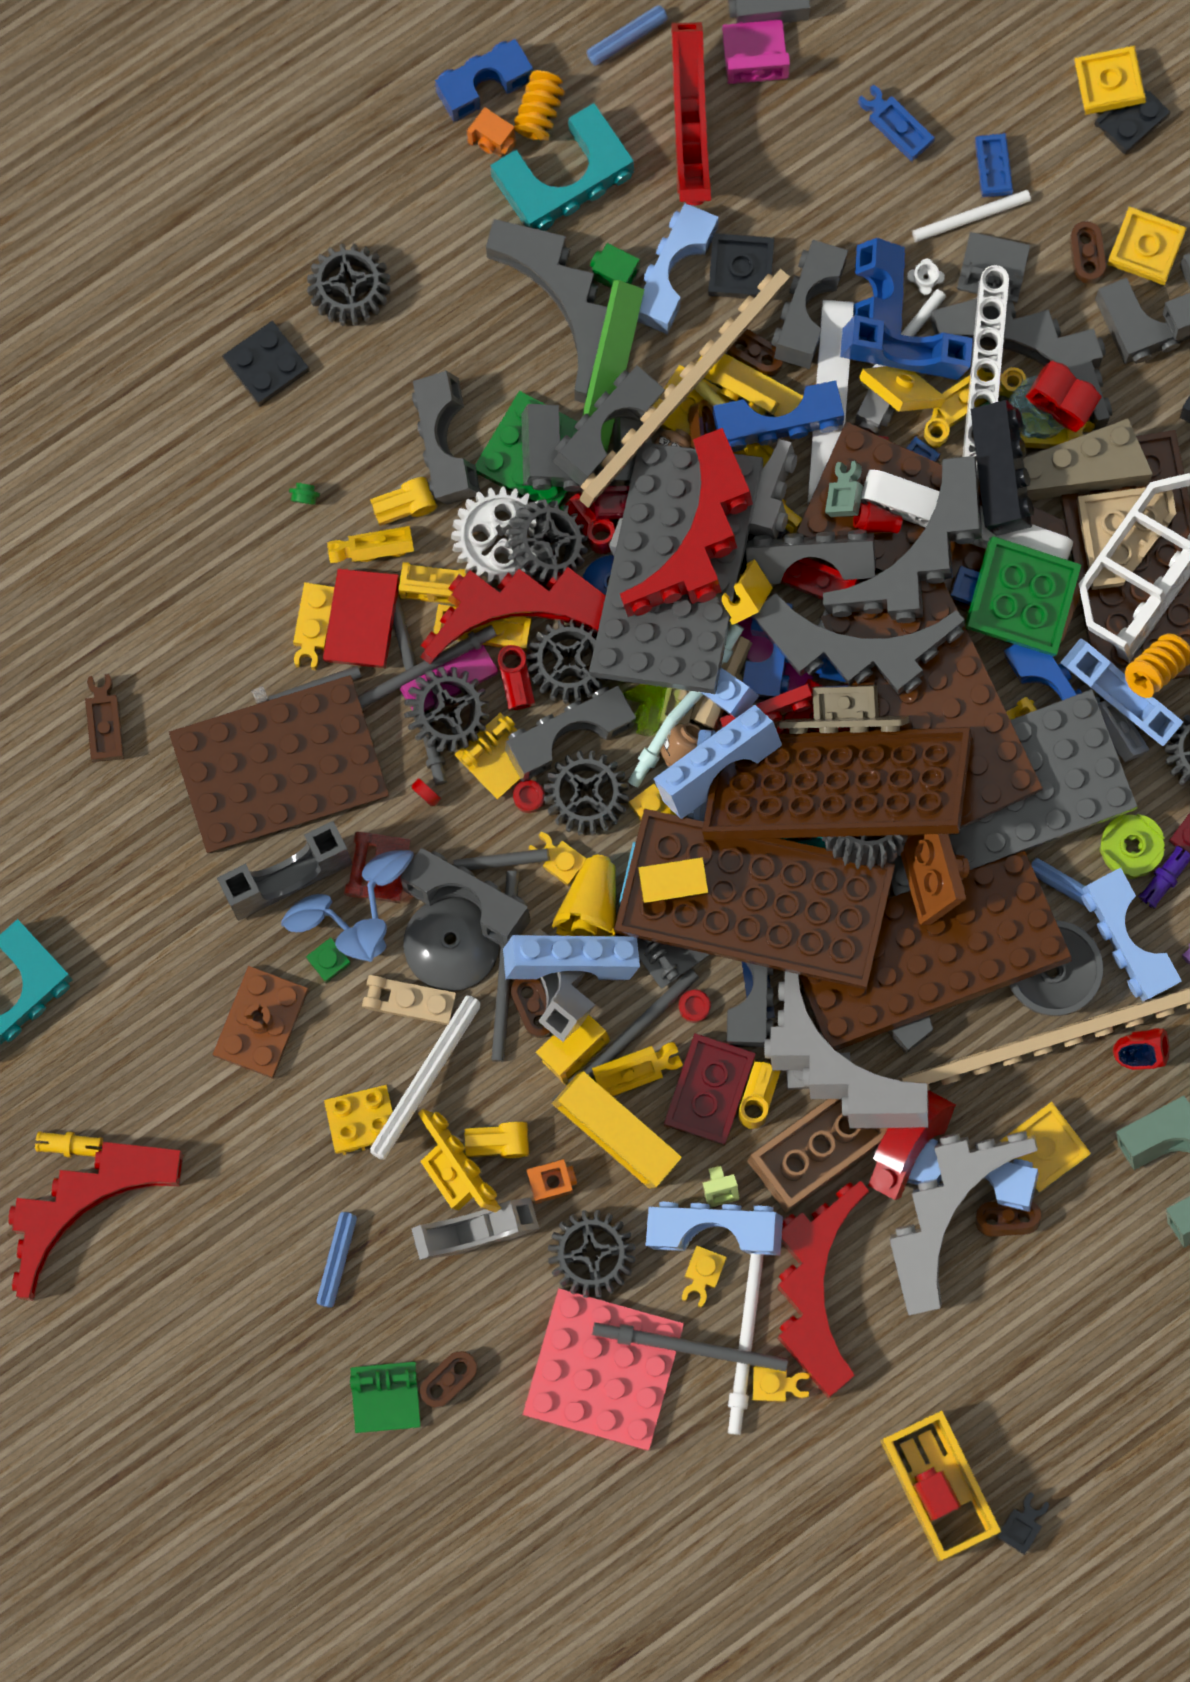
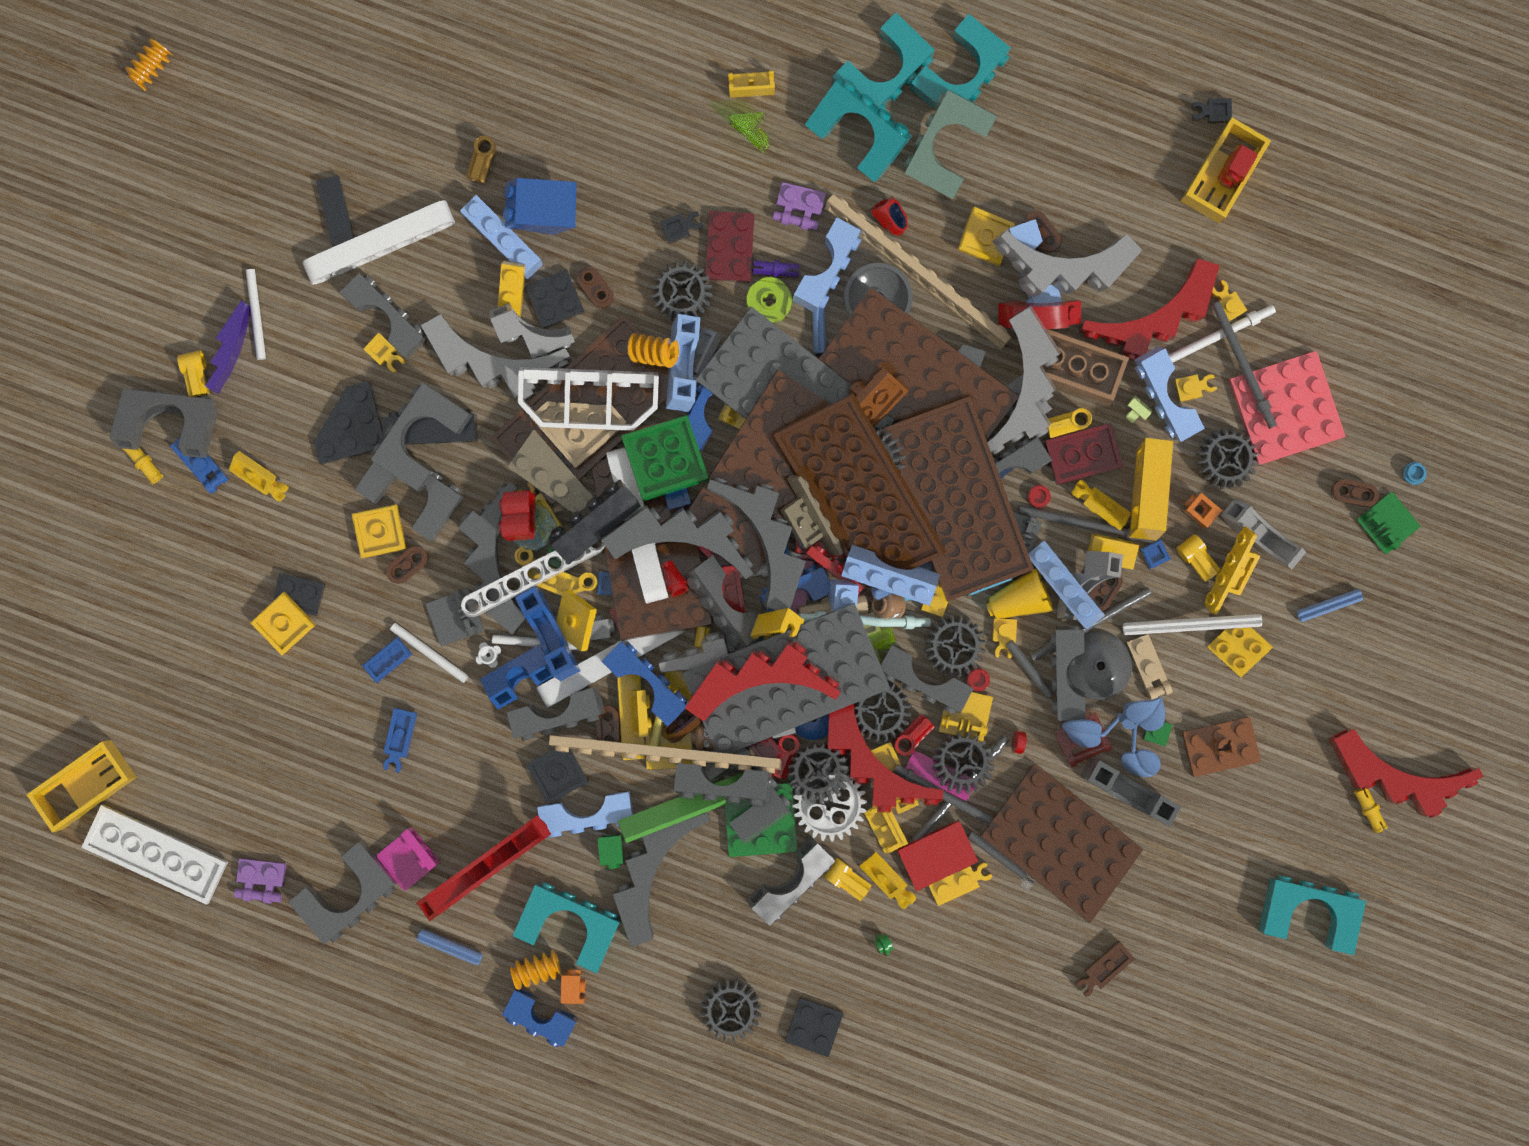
camera: 125 degrees left, 10 degrees up
(423, 1469) = (1414, 473): none -> dark azure plate
(535, 1096) = (1154, 554): none -> blue tile
(673, 880) = (983, 553): yellow hinge -> none
(846, 494) = (671, 607): sand green plate -> none

